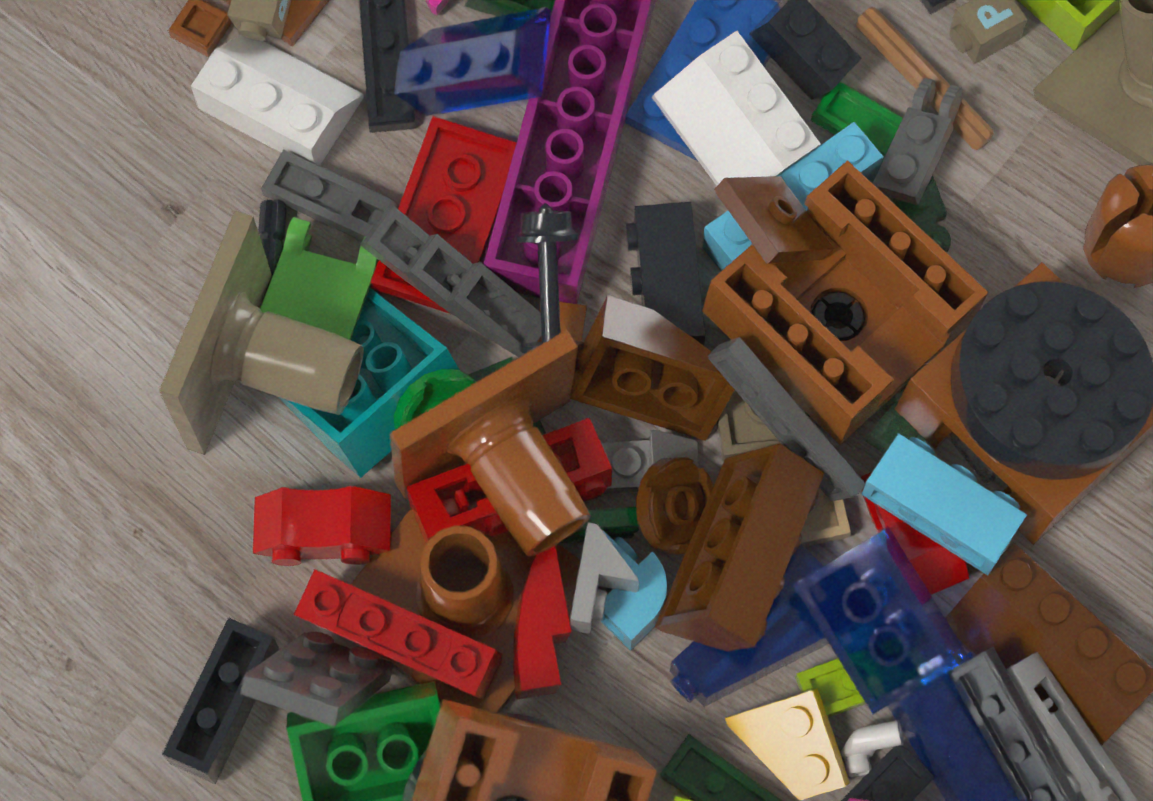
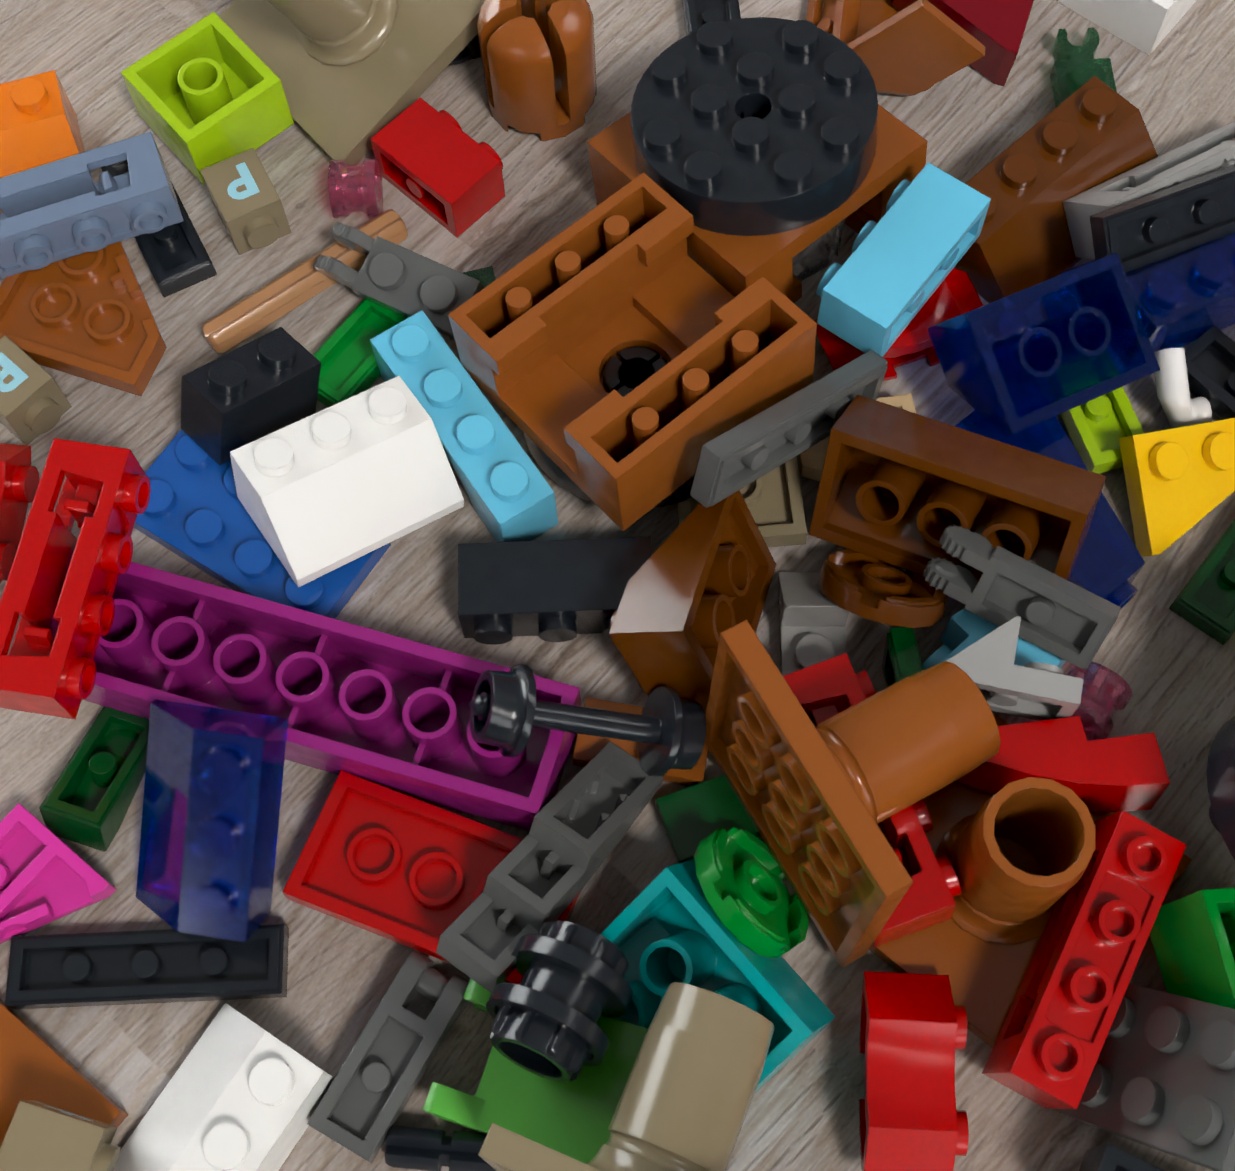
camera: 85 degrees left, 5 degrees down
(355, 285) = (554, 1011): none -> black piece
(599, 661) = (1101, 696): none -> clear pink wheel
(662, 590) = (1051, 609): none -> dark grey hinge
(773, 219) = (521, 413): reddish brown plate -> none
(1008, 103) = (355, 188): none -> clear pink wheel
(1036, 163) = (439, 166): none -> red brick

